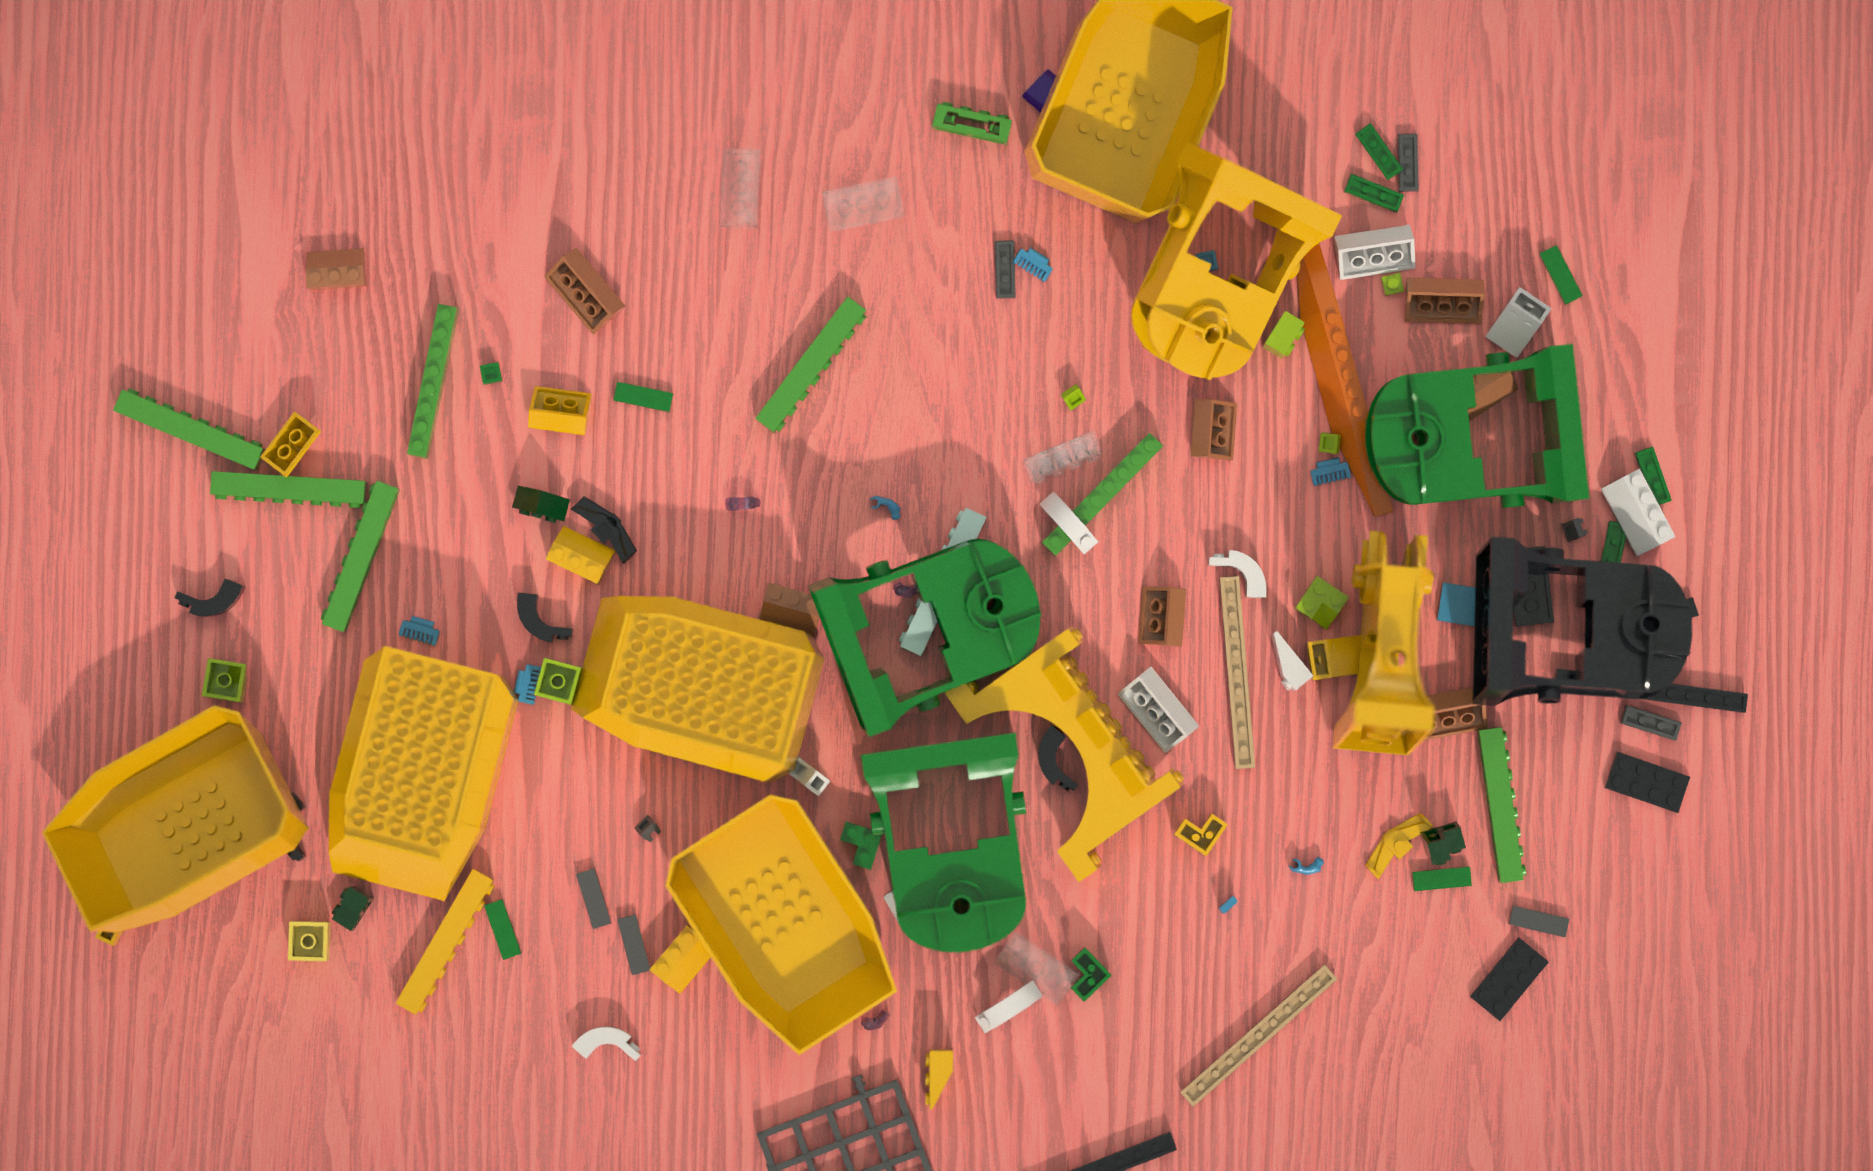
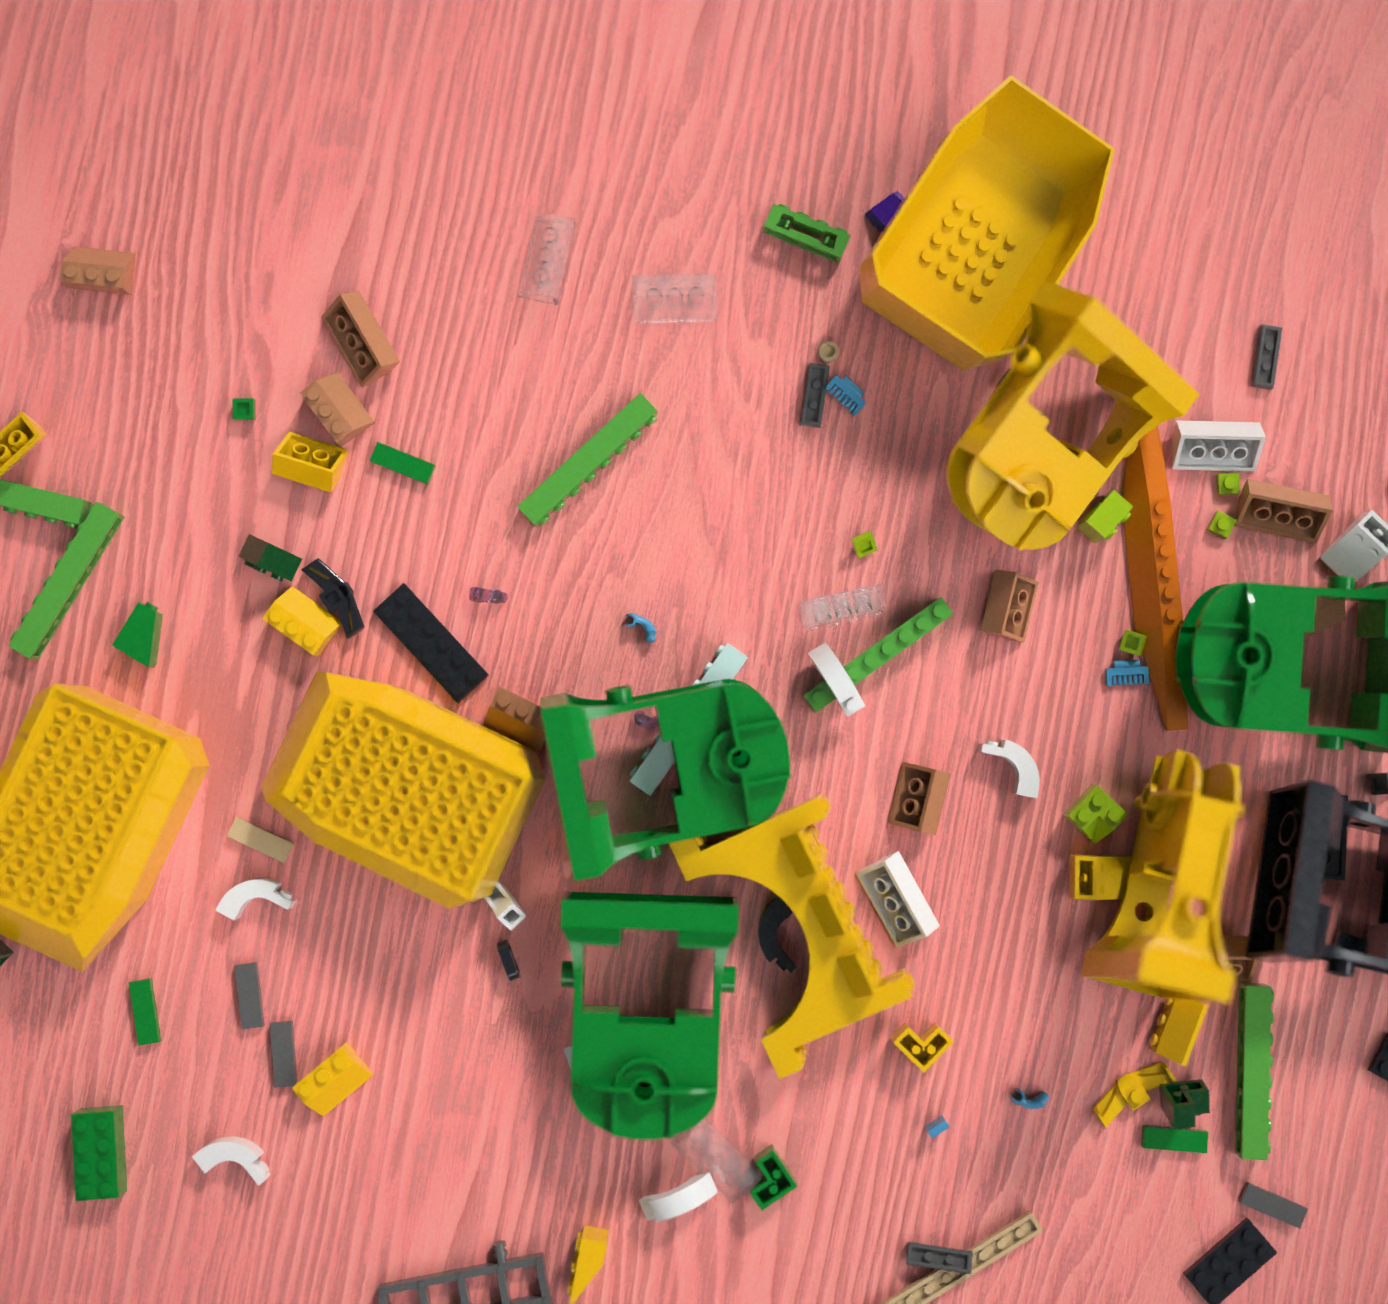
camera: 10 degrees right, 0 degrees up
(422, 626) = (117, 666): dark azure piece -> none
(433, 381) = (179, 406): bright green brick -> none
(437, 592) = (141, 634): none -> green slope
(445, 941) = (78, 1014): yellow brick -> none
(487, 1059) = (99, 1153): none -> green brick
(523, 681) = (217, 748): dark azure piece -> none
(528, 614) = (236, 680): black arch -> none
(558, 681) = (251, 753): lime brick -> none
(573, 806) = (239, 896): none -> white arch
(576, 357) = (337, 408): none -> nougat slope
(577, 758) = (260, 839): none -> tan tile
(646, 827) = (319, 929): dark grey tile -> none
(698, 554) = (431, 643): none -> black plate
(782, 922) = (442, 1068): yellow piece -> none
(820, 825) = (508, 960): none -> black beam
(865, 841) = (549, 981): green brick -> none
(875, 1023) = (530, 1187): arm -> none
(1010, 228) = (828, 352): none -> tan tile
(1237, 672) = (990, 874): tan plate -> none
(1249, 1018) = (939, 1257): none -> dark grey tile
(1290, 666) = (1050, 878): white slope -> none
(1374, 193) = (1224, 383): green tile -> none
(1379, 151) = (1238, 339): green tile -> none
(1392, 322) = (1221, 525): none -> lime plate
(1424, 777) = (1178, 1029): none -> yellow slope
(1457, 604) = (1246, 843): dark azure tile -> none

